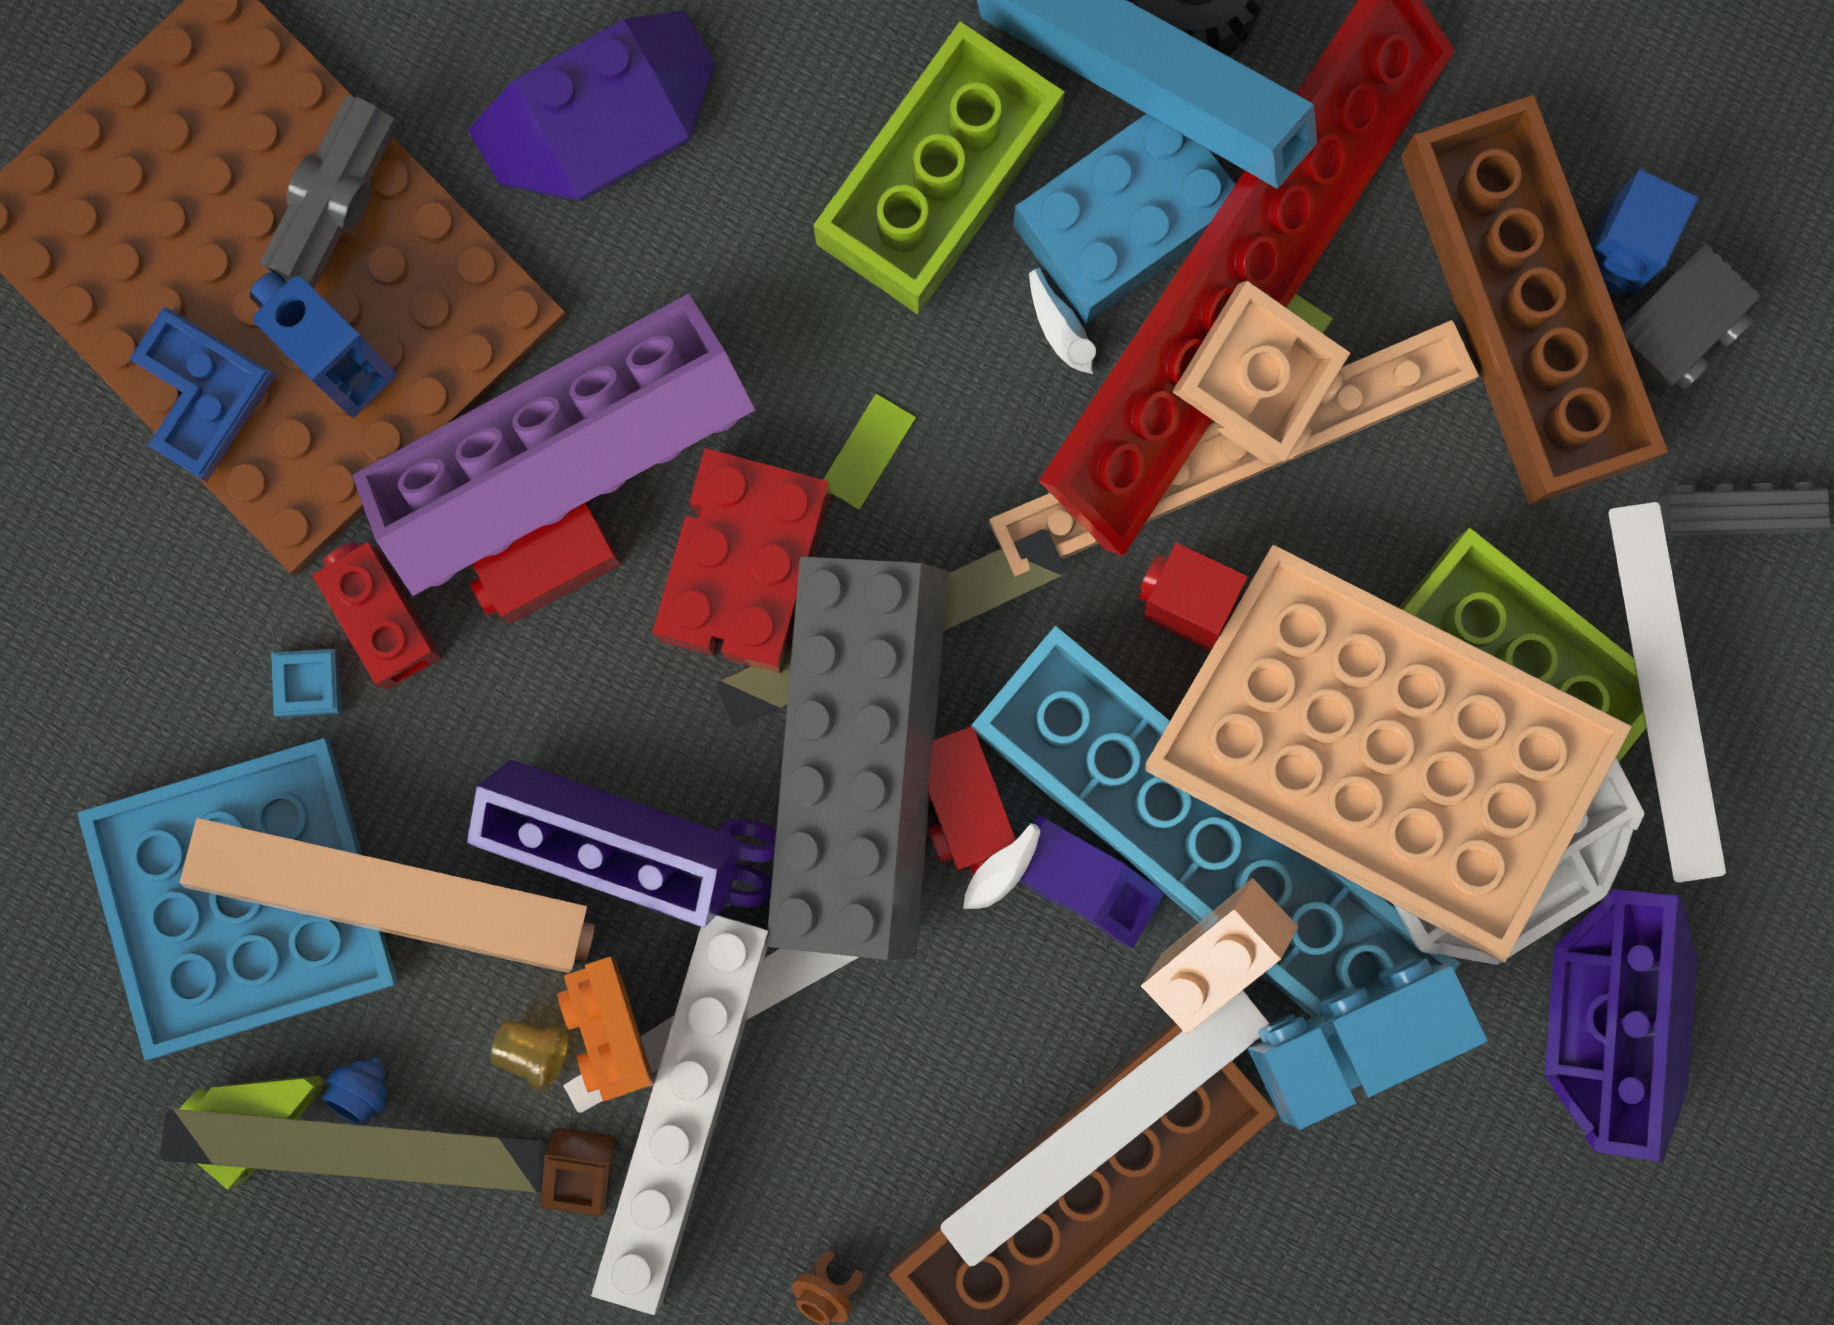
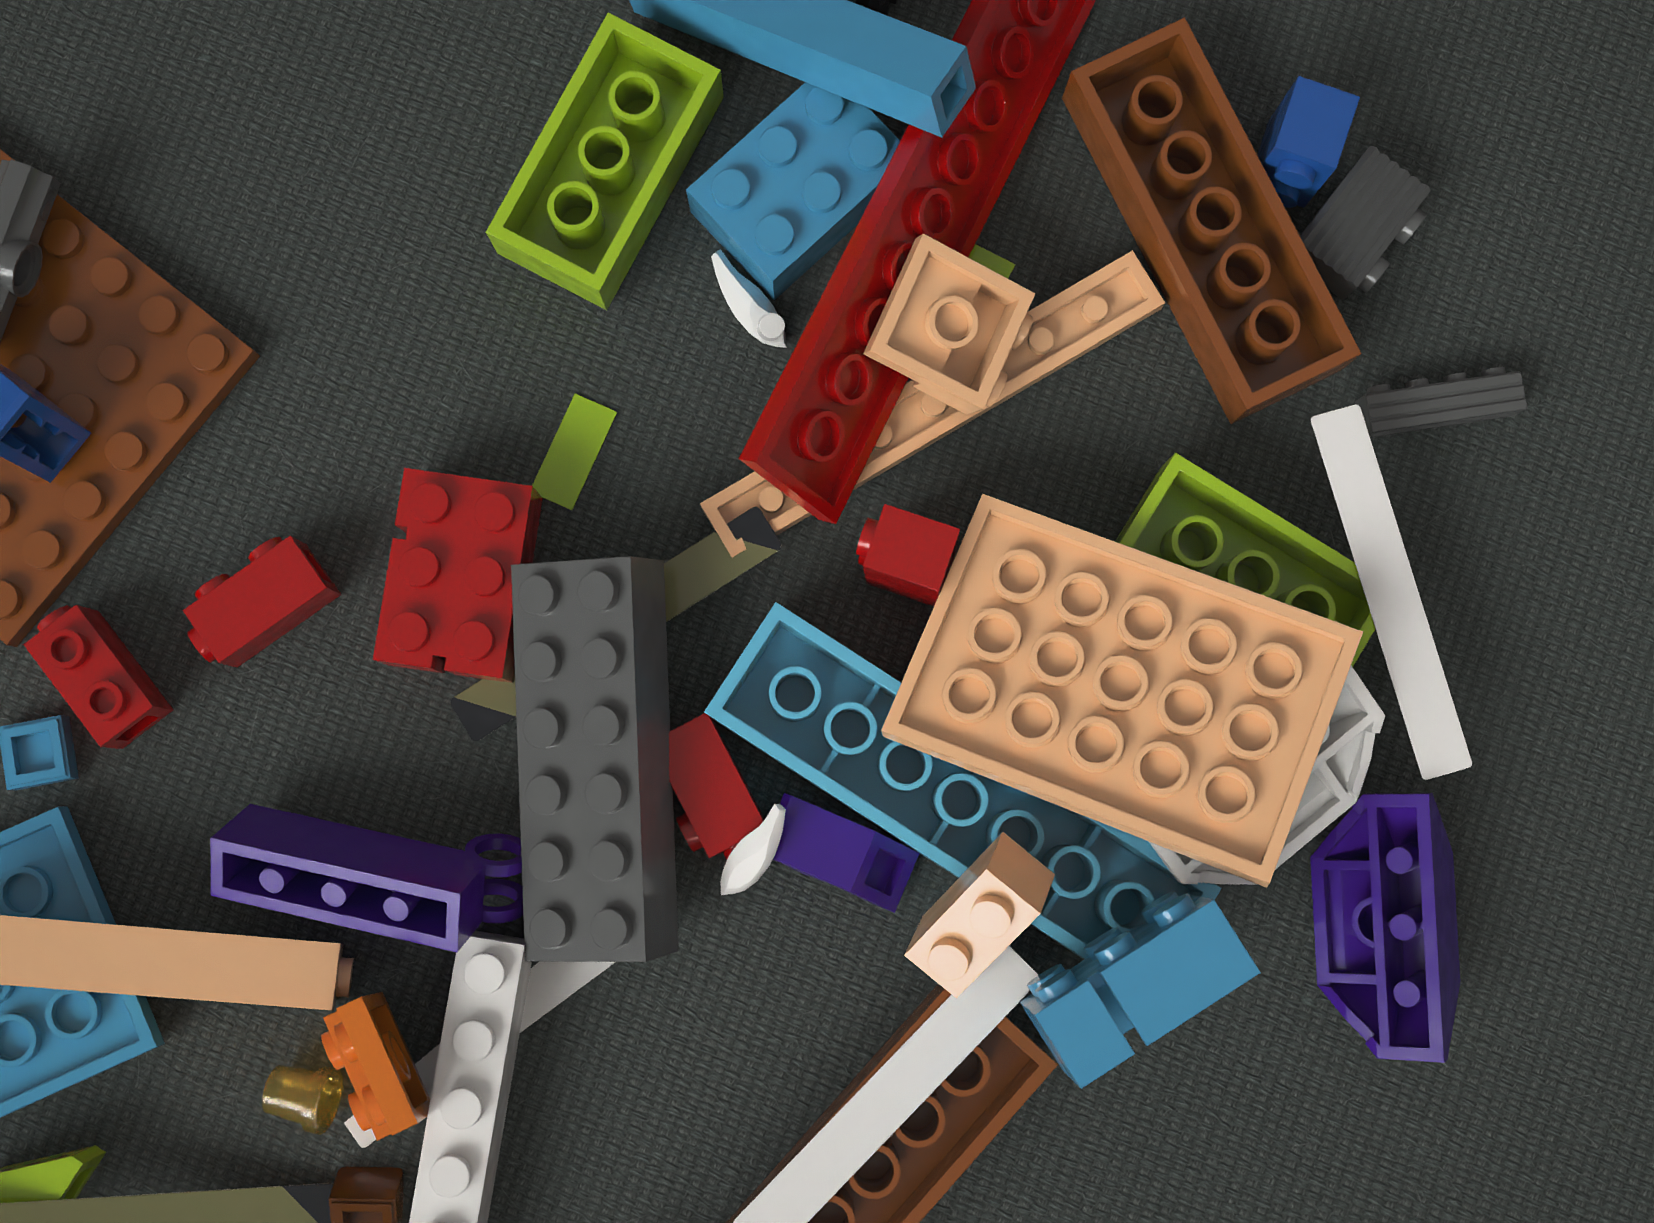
camera: 15 degrees left, 0 degrees up
(357, 1091) = (133, 1157): blue plate -> none
(551, 444) = (247, 486): medium lavender brick -> none
(598, 108) = (263, 143): dark purple wedge -> none

